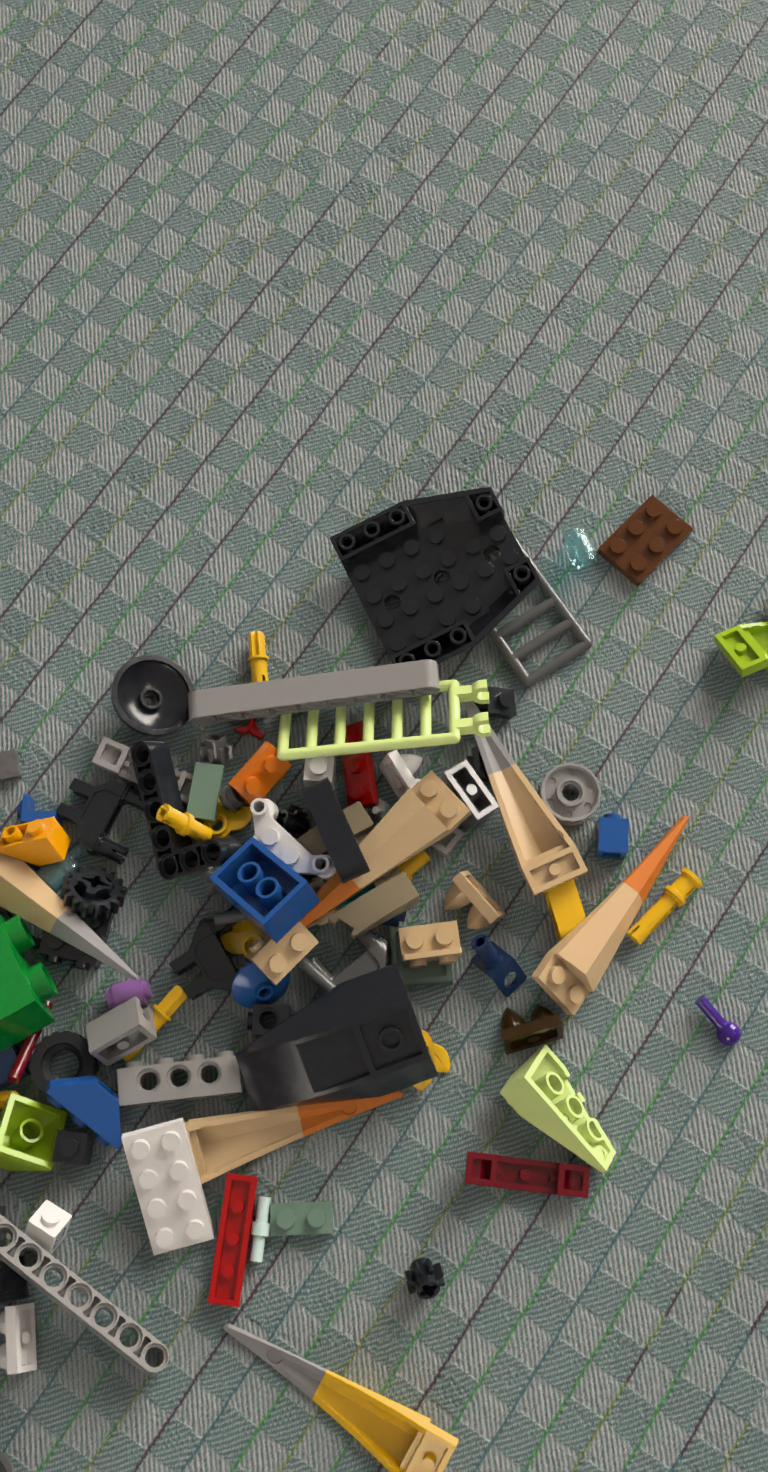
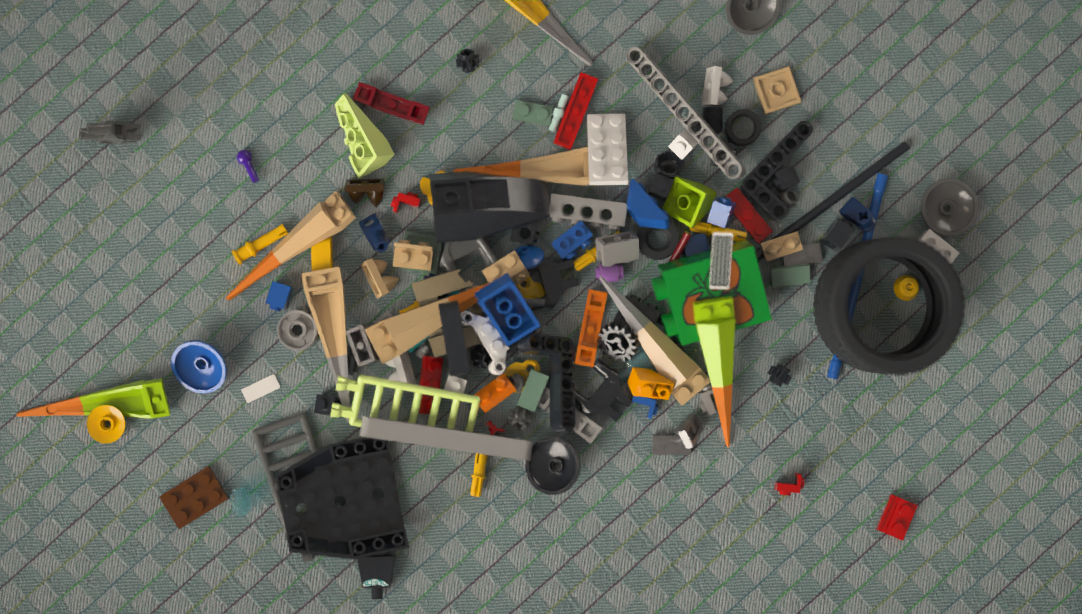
camera: 170 degrees left, 15 degrees up
(67, 1186) = (668, 165): none -> black hair
(140, 903) = (590, 328): none -> orange slope
(183, 823) = (550, 369): yellow pin -> none
(193, 1027) = (572, 240): none -> blue bracket
(365, 497) = (376, 573): none -> black torso
(458, 1029) = (409, 199): none -> red bracket
(598, 705) = (260, 388): none -> white sticker
(695, 707) = (193, 372): none -> blue dish

